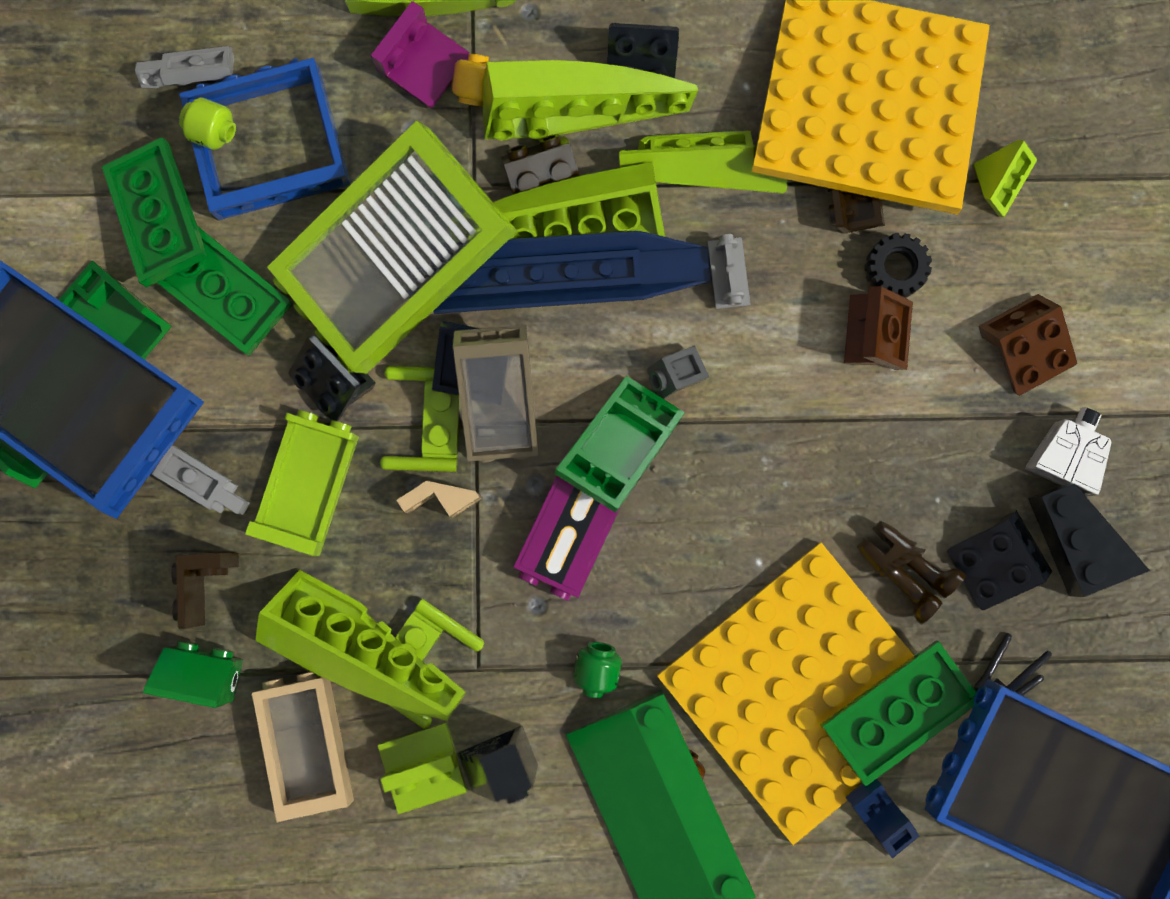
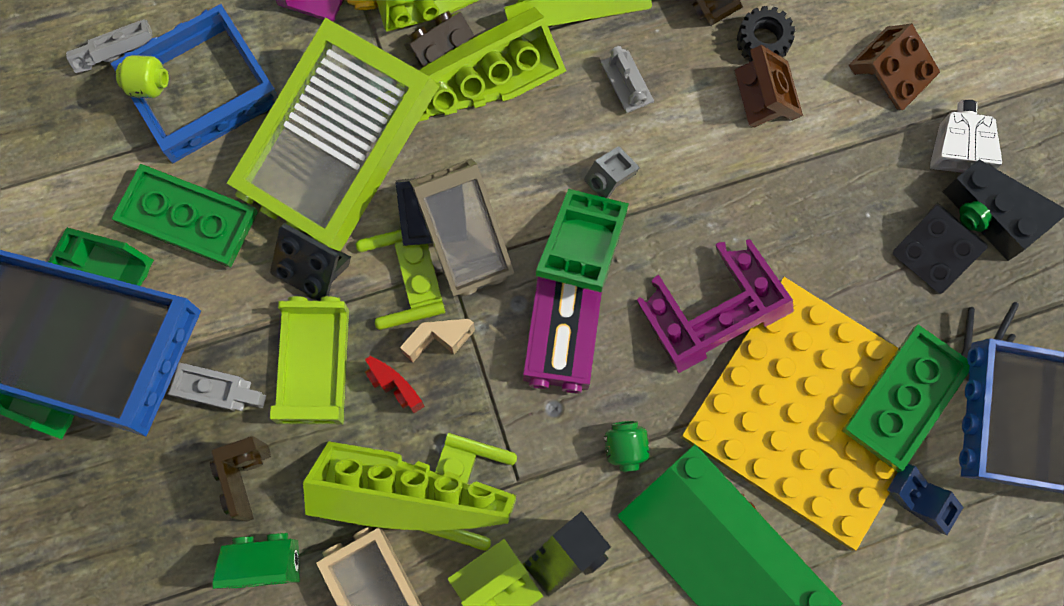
camera: 20 degrees left, 10 degrees down
(154, 212) = (113, 167): green plate -> none
(374, 523) = (388, 378): none -> red slope
(580, 271) = (499, 113): dark blue hinge -> none
(783, 567) = (761, 301): none -> magenta wedge
(905, 552) = (858, 263): dark brown piece -> none
(1046, 542) = (975, 216): none -> green plate

